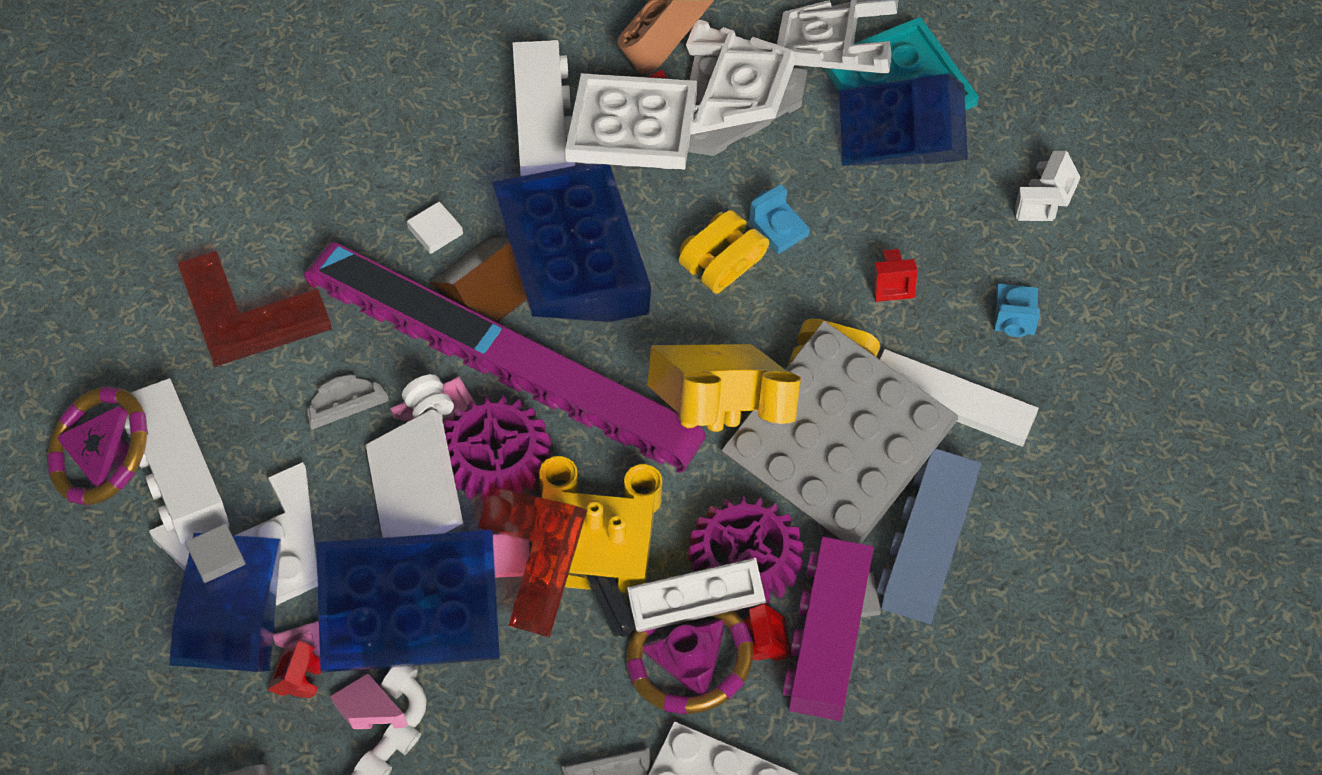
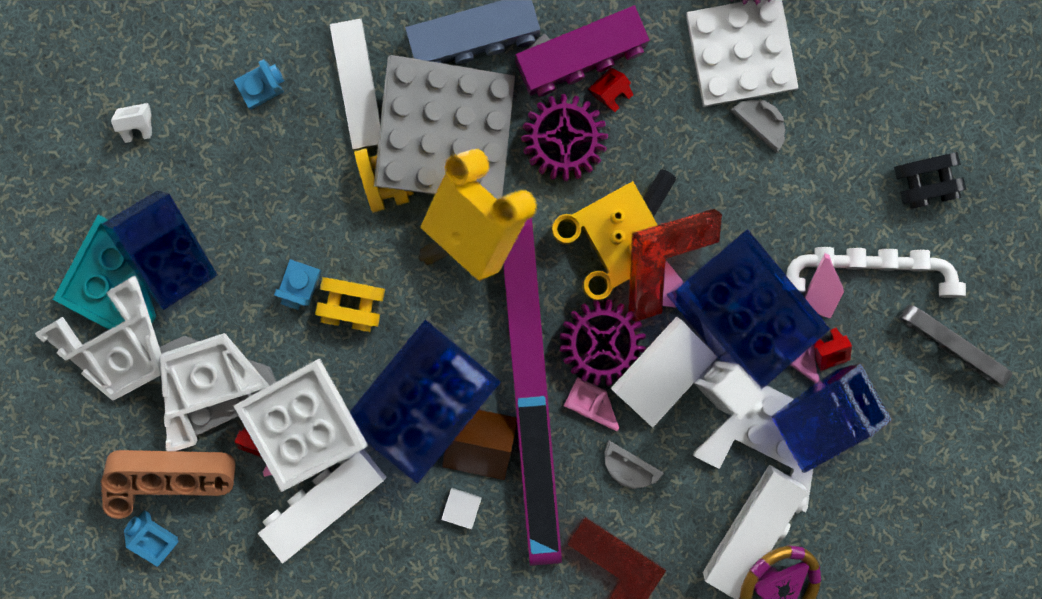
camera: 125 degrees left, 30 degrees up
(215, 553) = (814, 444): light grey tile -> none
(341, 490) = (731, 390): none -> white brick
(426, 394) = (603, 406): white wheel -> none
(691, 658) = (655, 125): magenta piece -> none
(696, 595) = (622, 140): white tile -> none
(894, 277) = (291, 177): red tile -> none
(1037, 203) = (164, 119): white tile -> none

